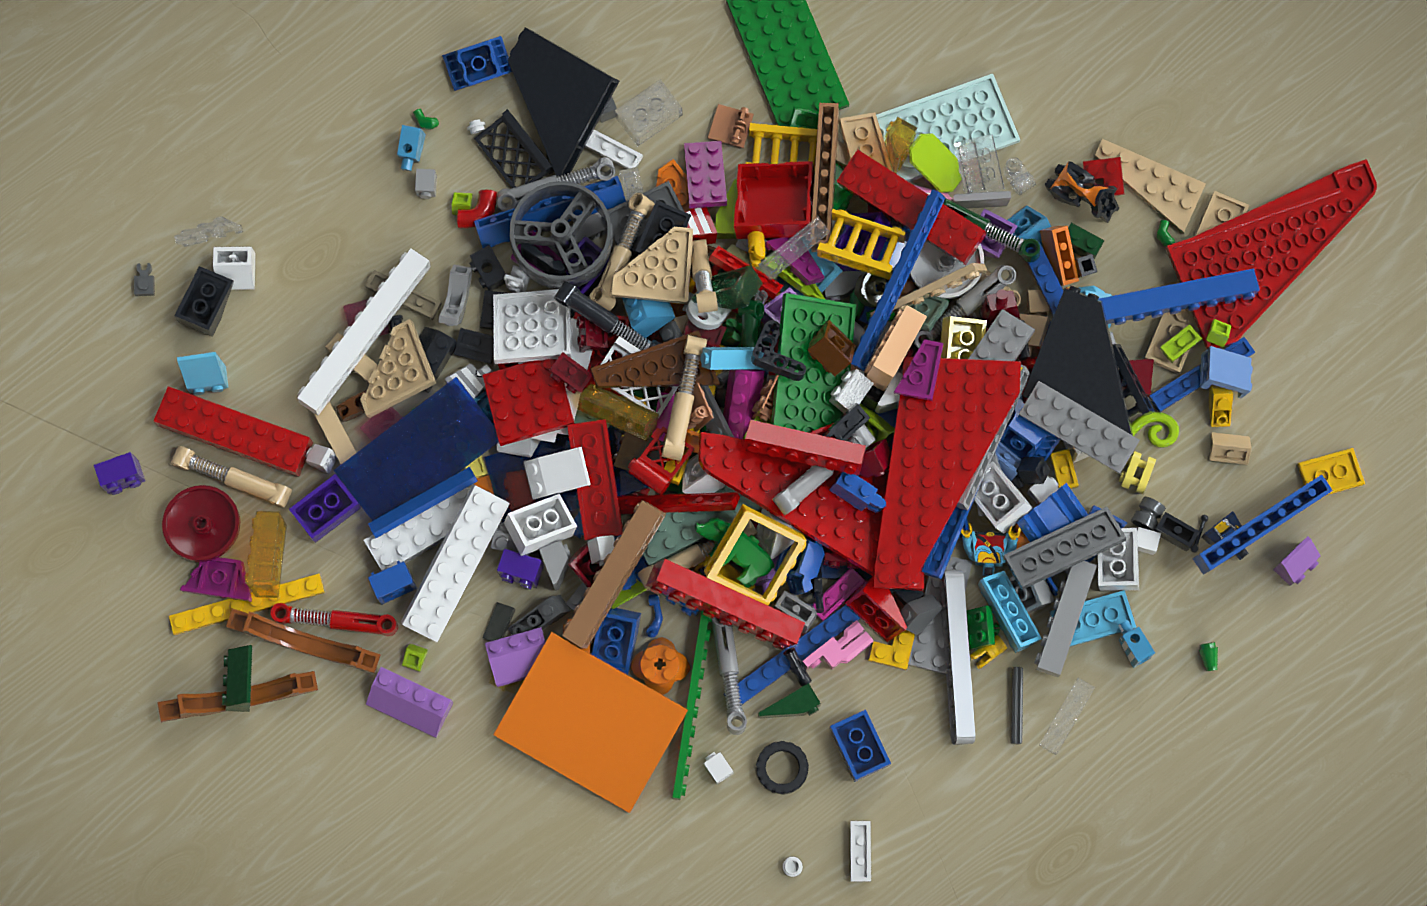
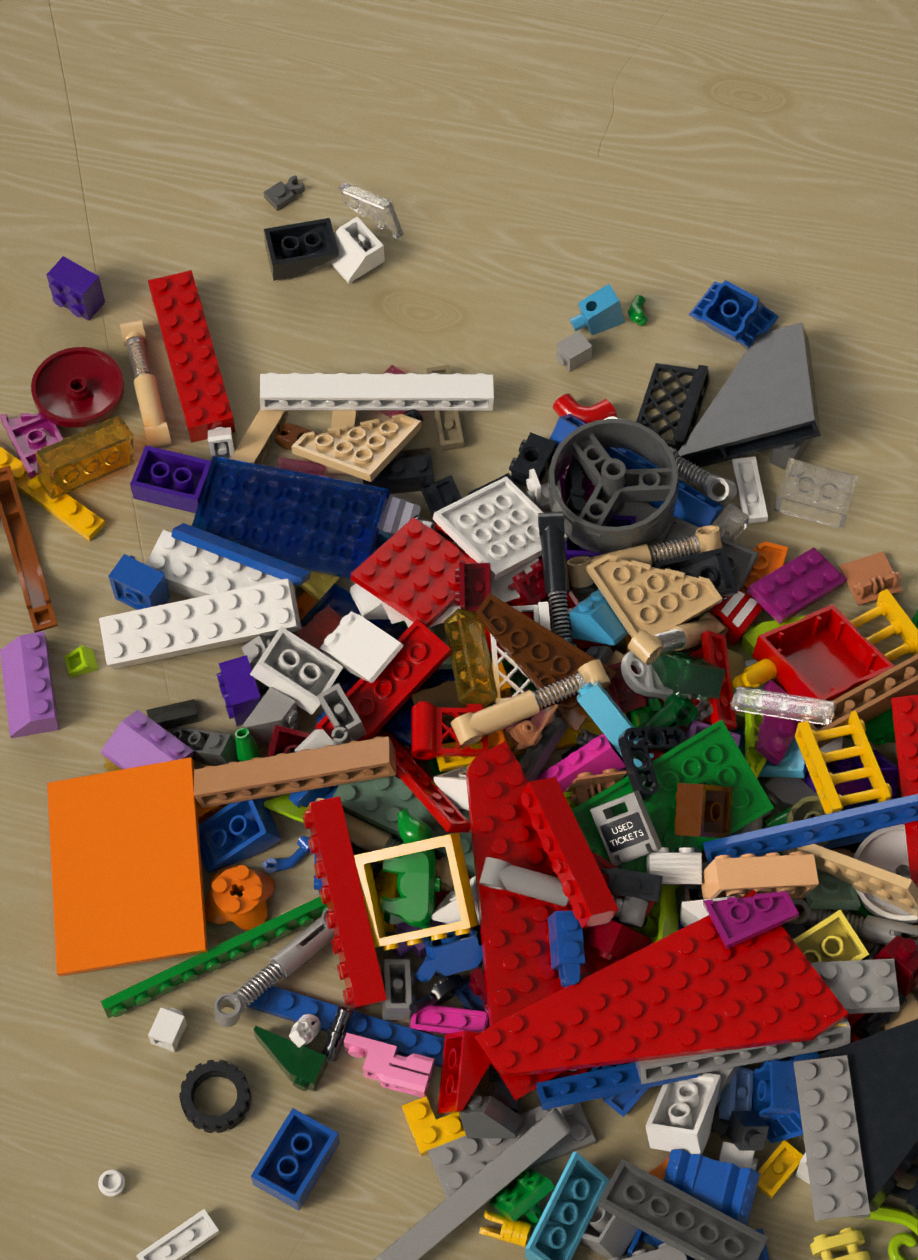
camera: 55 degrees right, 15 degrees down
(203, 373) = (227, 288): medium azure slope -> none
(336, 619) = (66, 564): red piece -> none
(457, 296) = (481, 453): light grey arch -> none
(461, 201) = (583, 394): lime slope -> none
(476, 126) = (668, 355): white plate -> none
(566, 592) = (246, 745): none -> green cone
(599, 519) = (341, 715): none -> light grey hinge
(782, 685) = (303, 1031): none -> white hinge
(815, 404) = (626, 834): none -> light grey container
(989, 547) = (621, 1139): torso -> none

